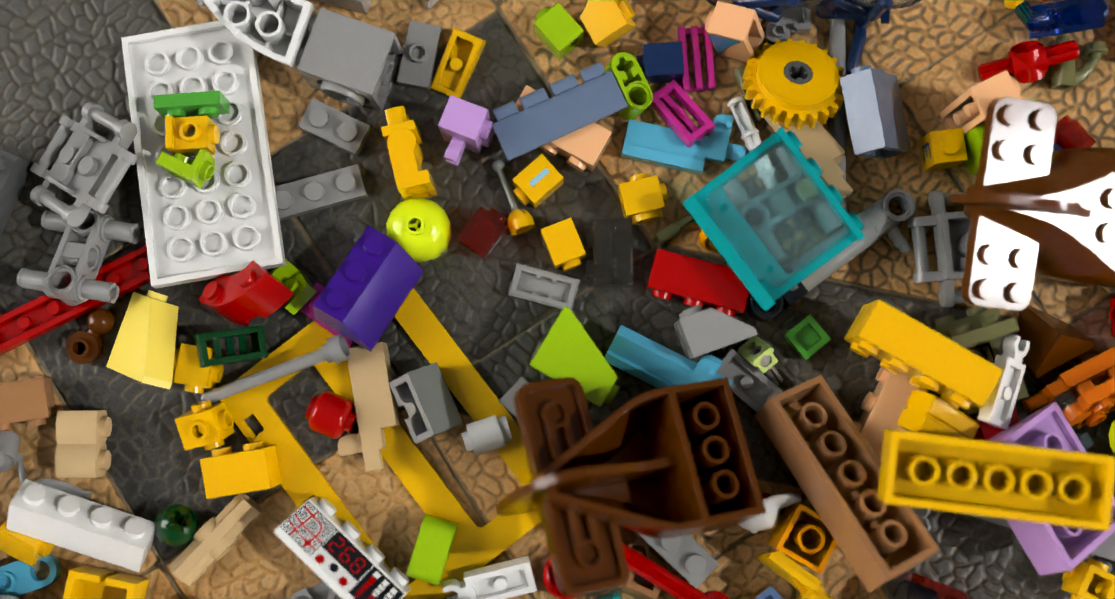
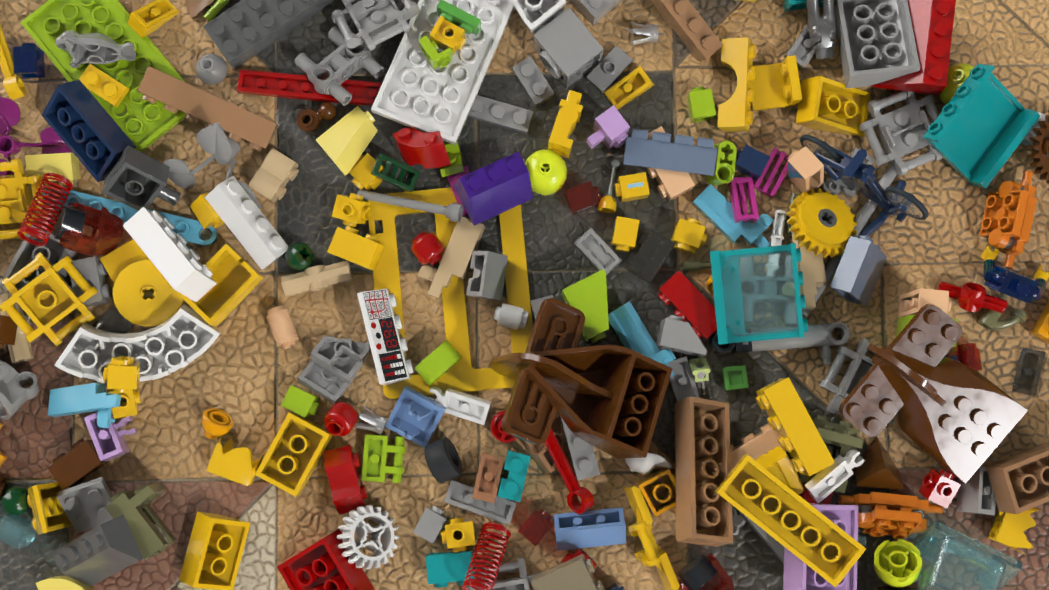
camera: 30 degrees right, 0 degrees up
(942, 149) = (886, 317): yellow brick -> none

